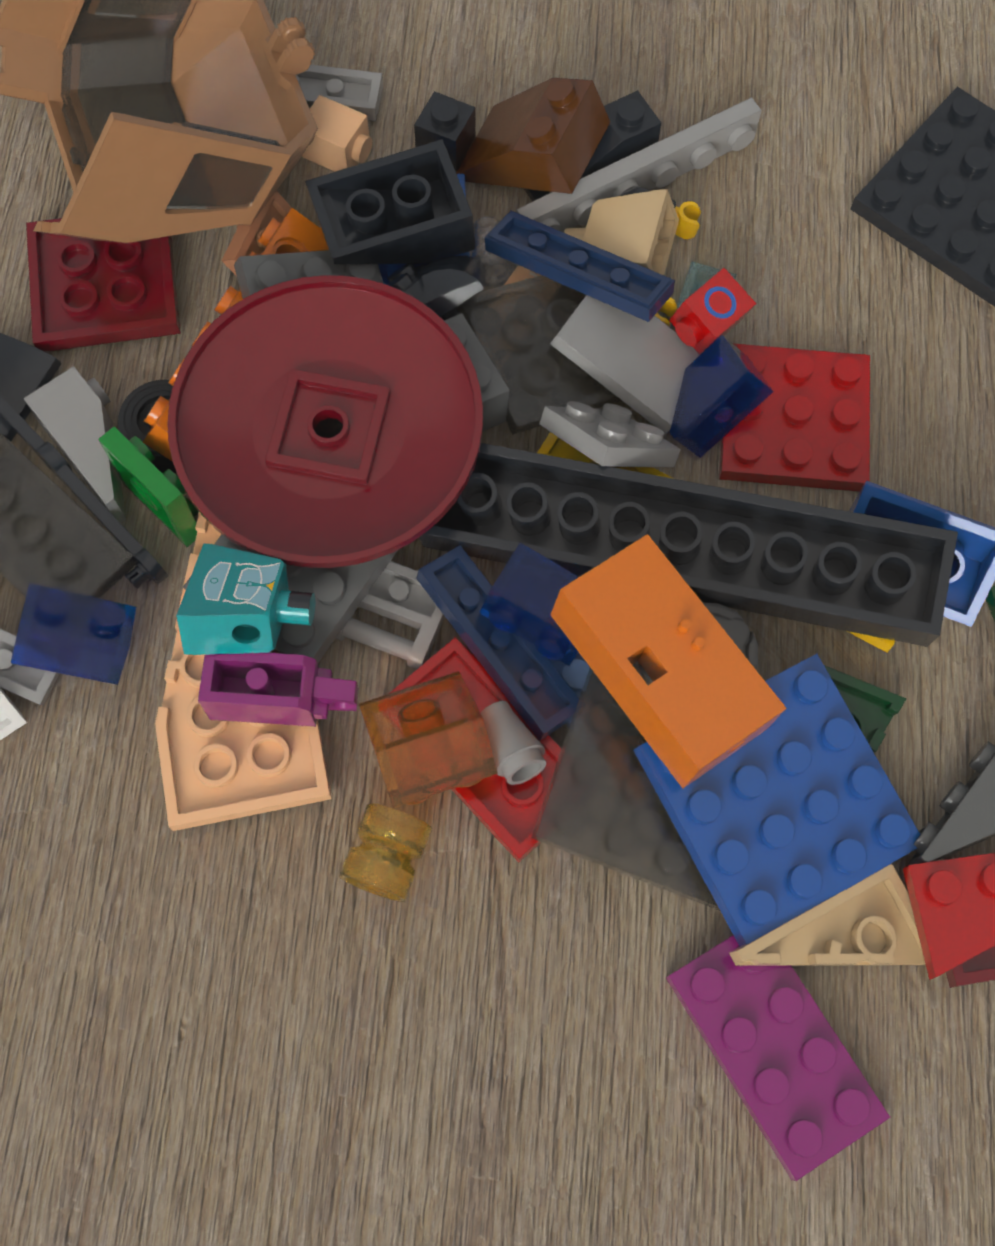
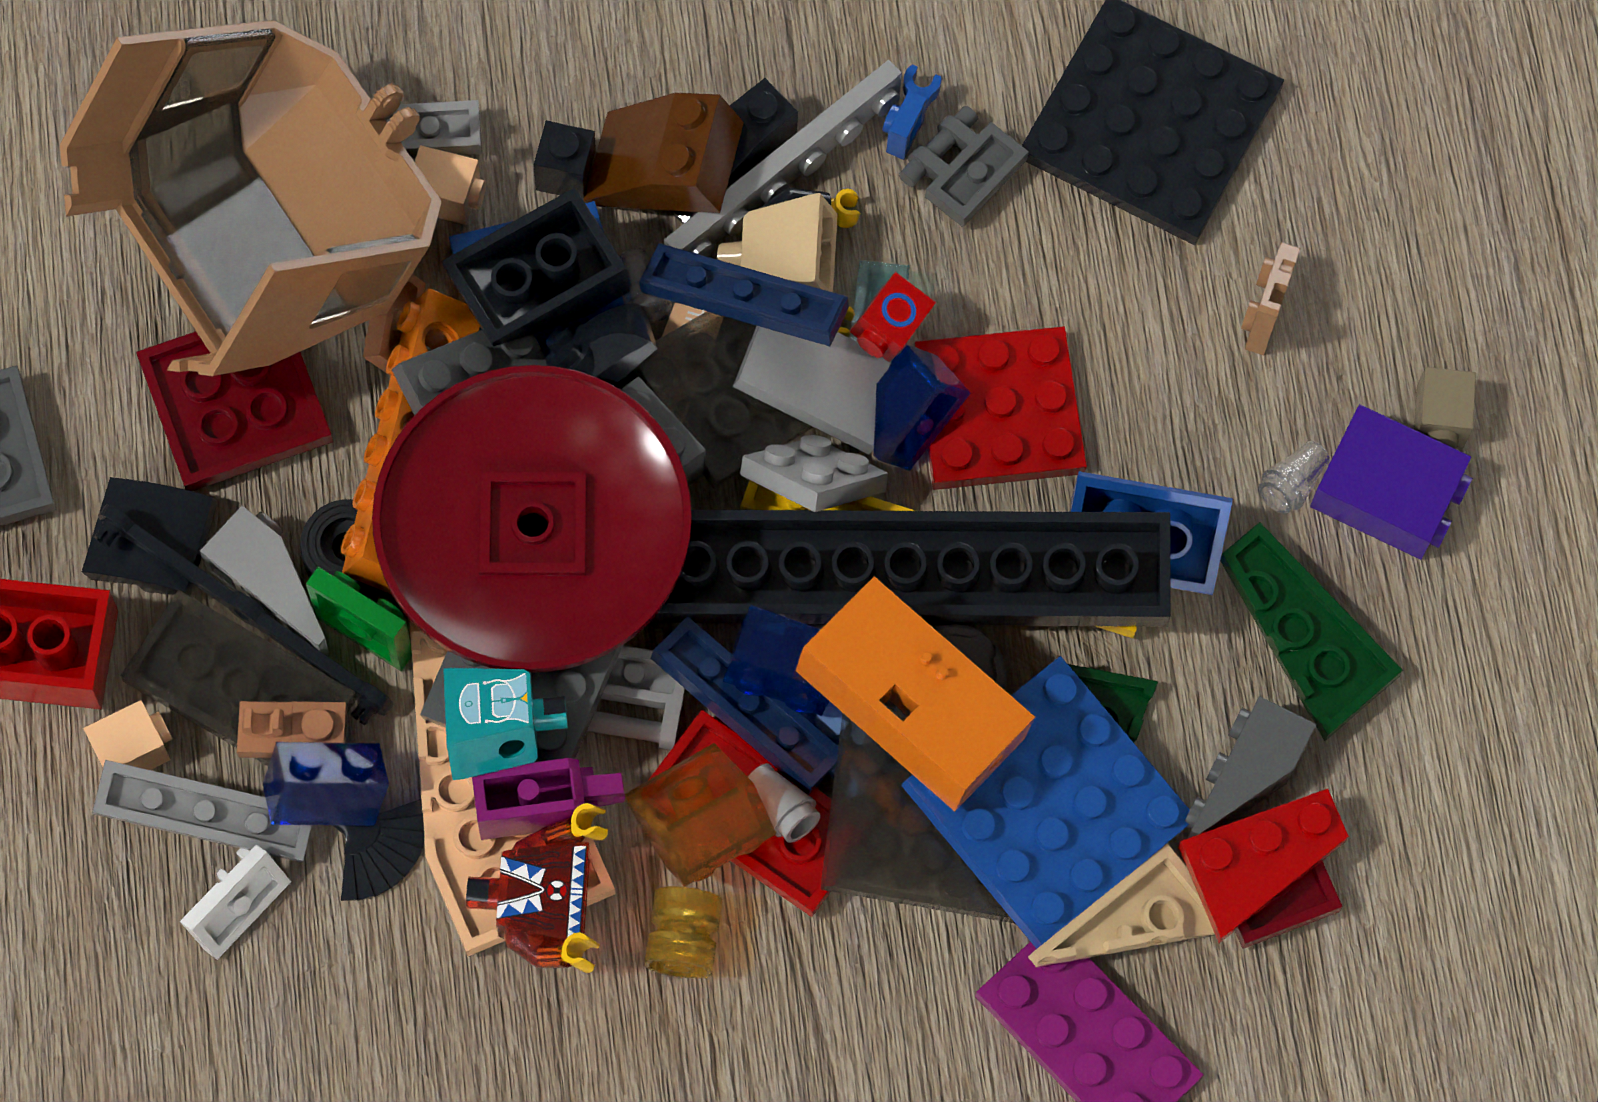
camera: 15 degrees left, 0 degrees up
(59, 571) = (272, 722): none -> nougat plate
(119, 712) = (381, 853): none -> black hand
(253, 785) = (544, 892): none -> torso
(757, 154) = (906, 120): none -> blue plate
(807, 213) = (974, 174): none -> dark grey plate

